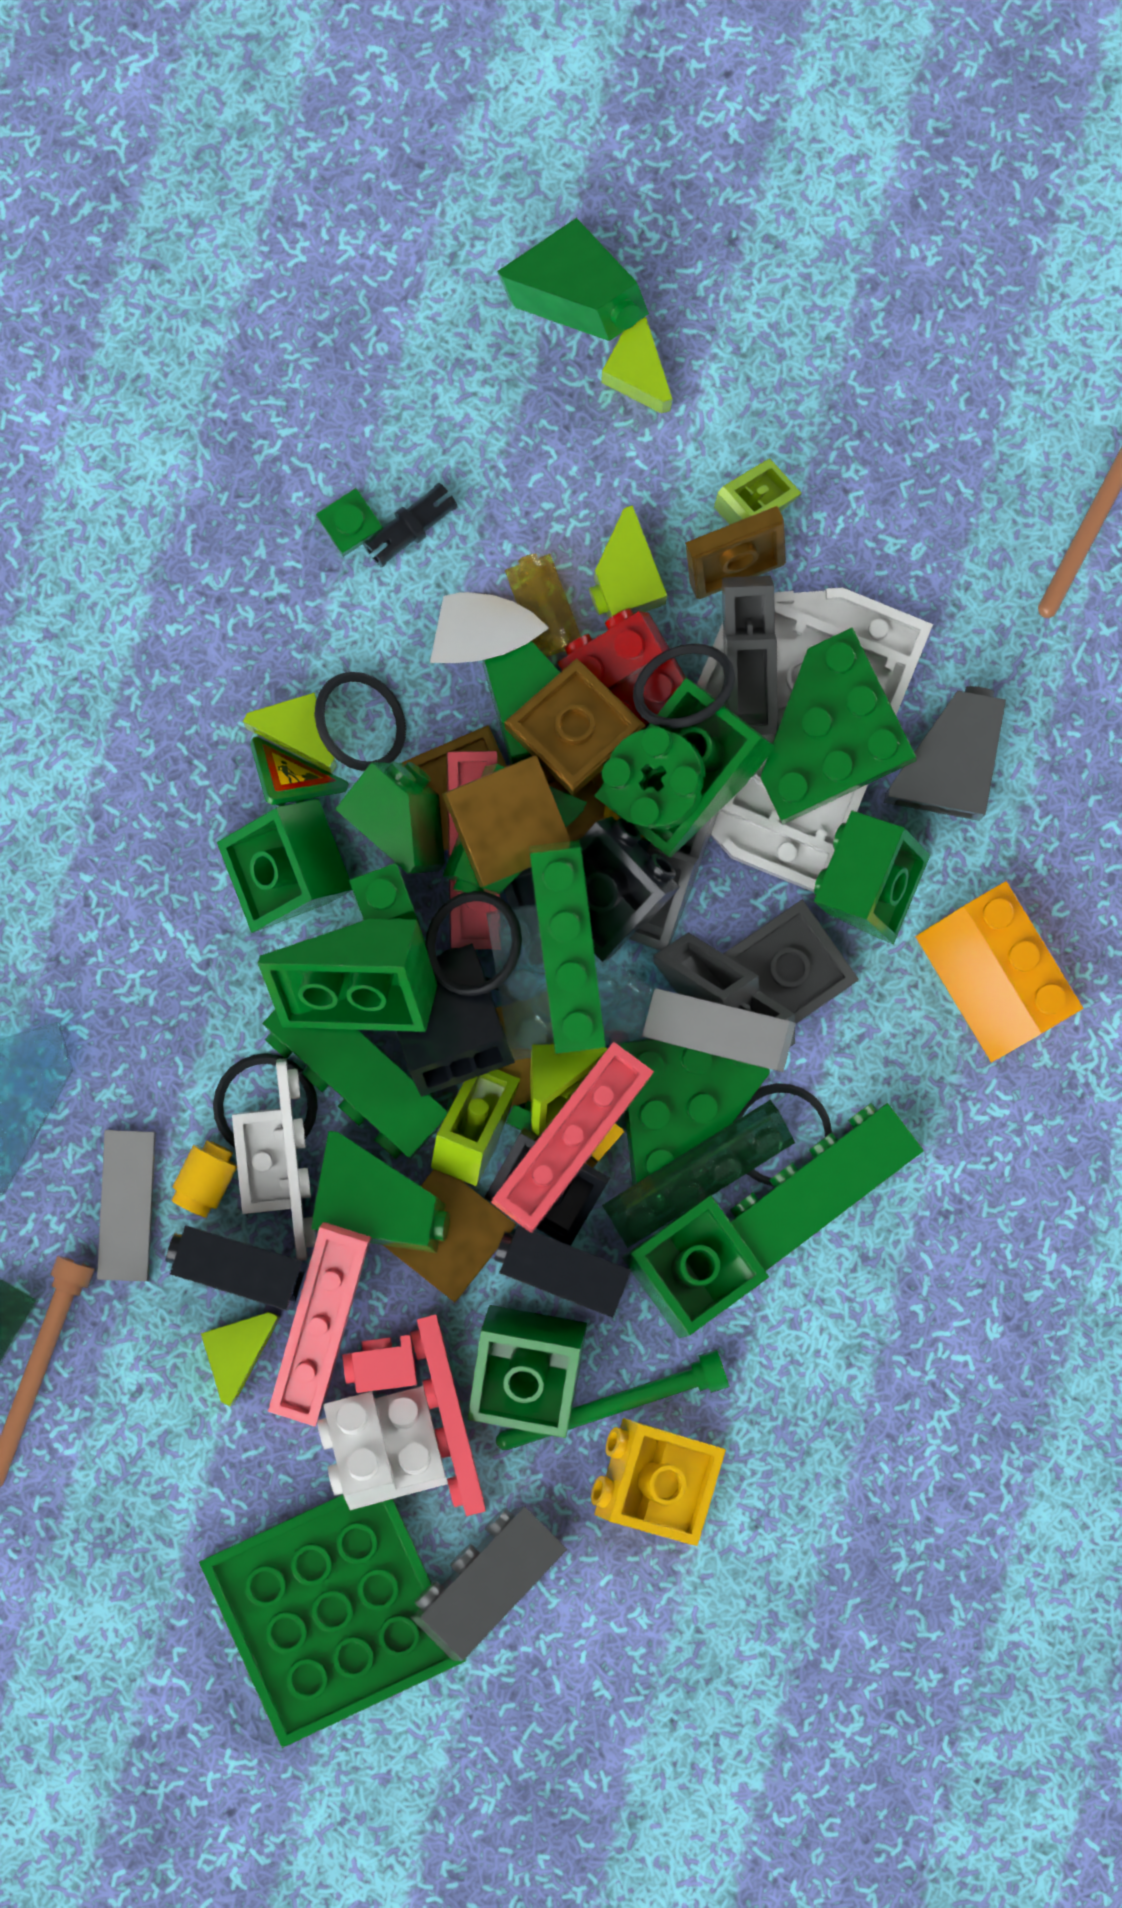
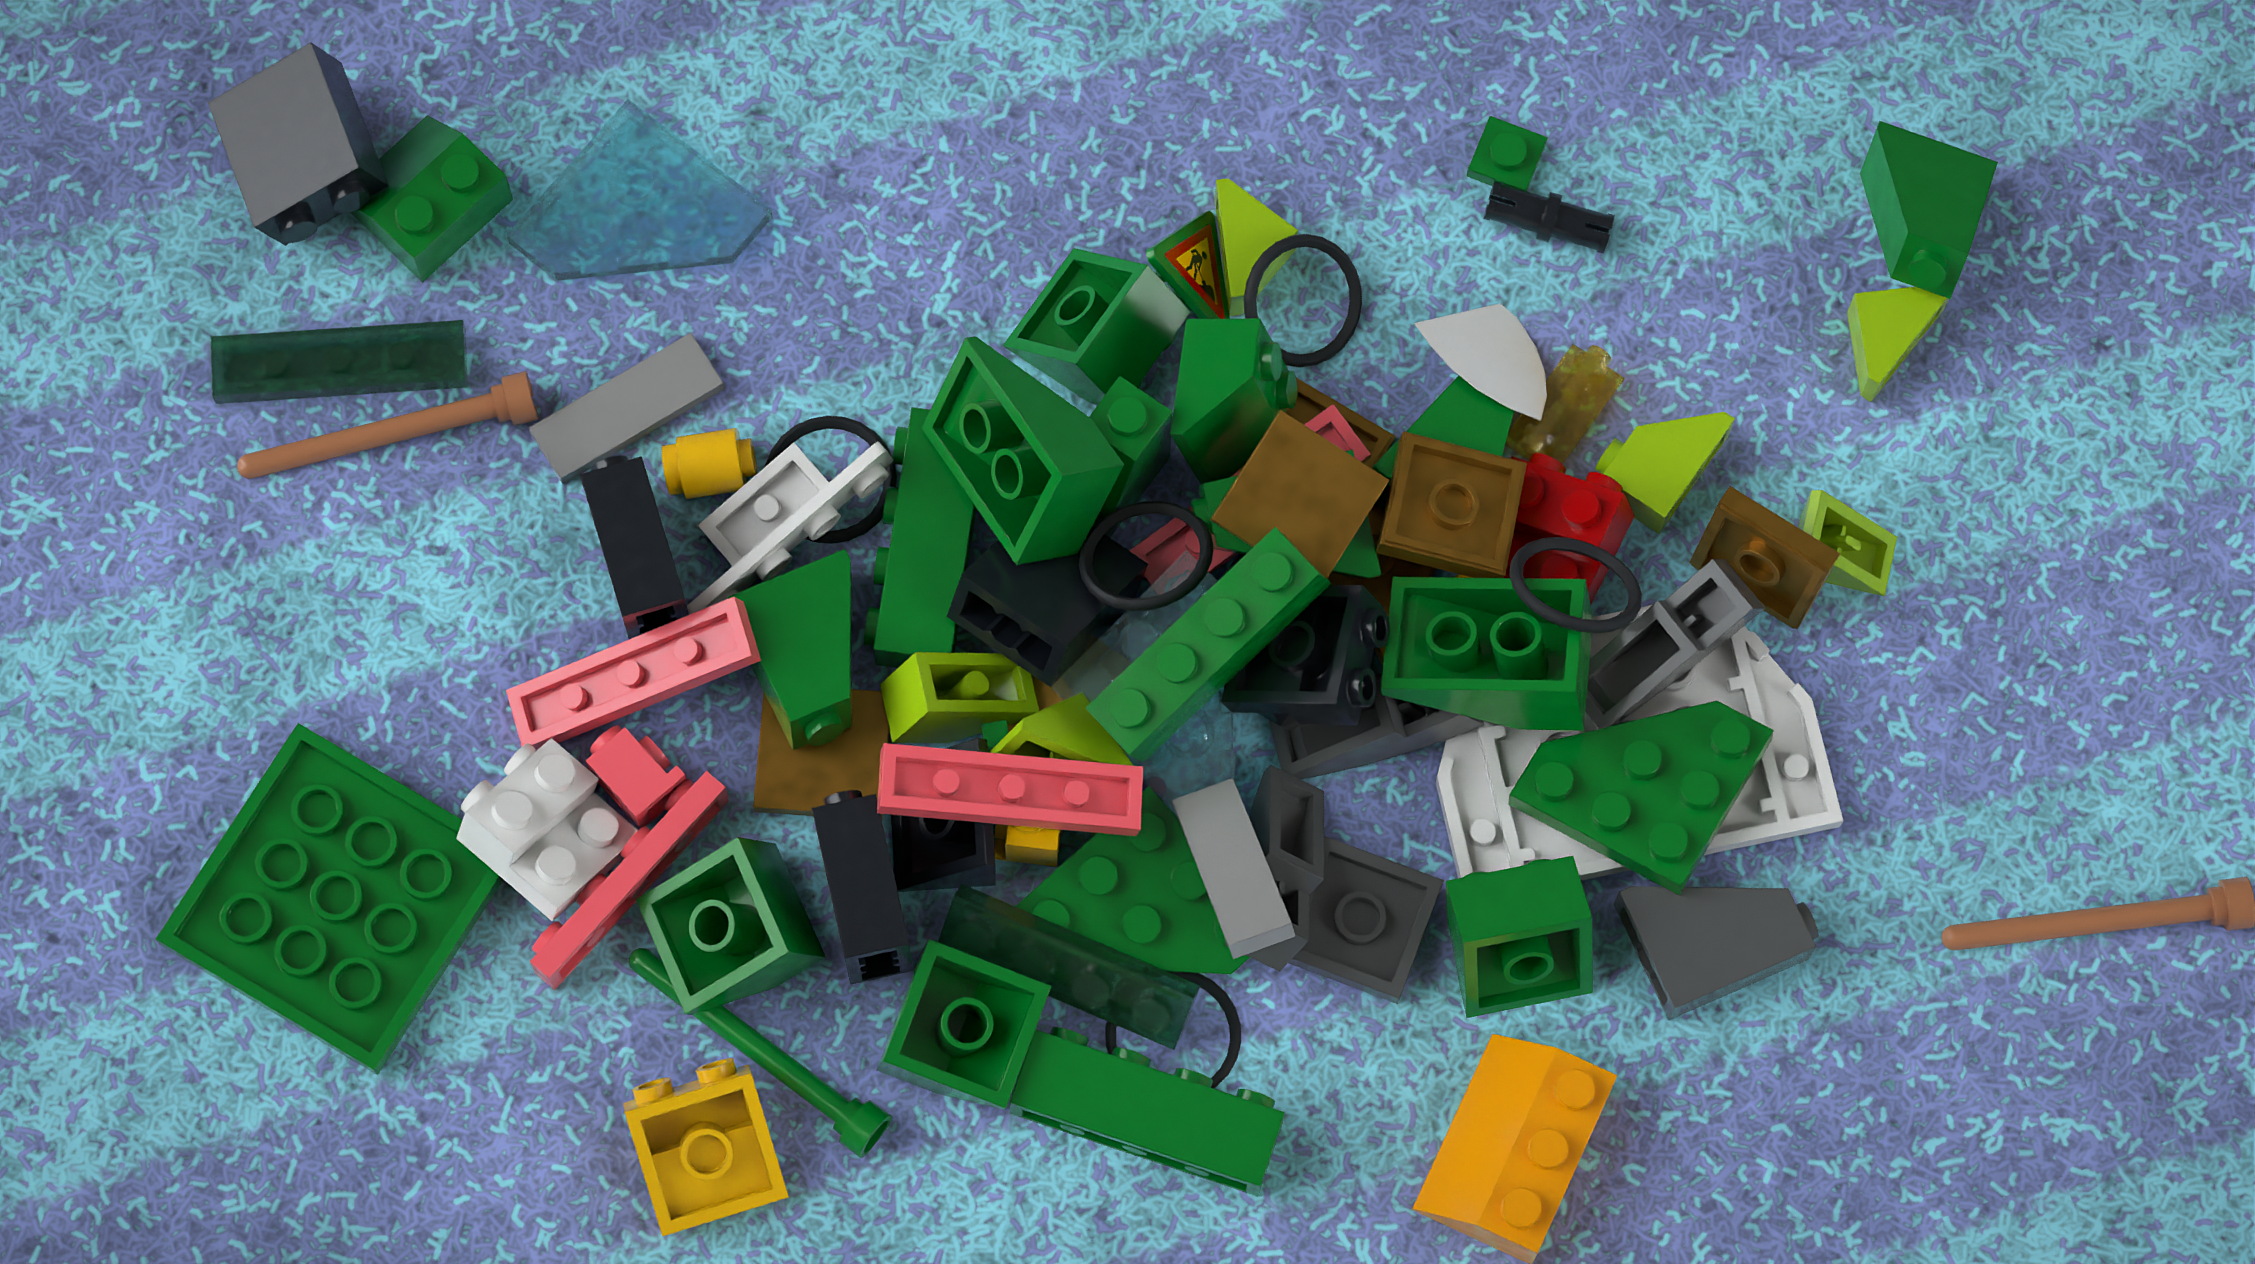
camera: 60 degrees right, 10 degrees down
(235, 1351) = (545, 616): lime slope -> none
(487, 1582) = (474, 1031): dark grey brick -> none
(627, 770) = (1446, 585): green plate -> none

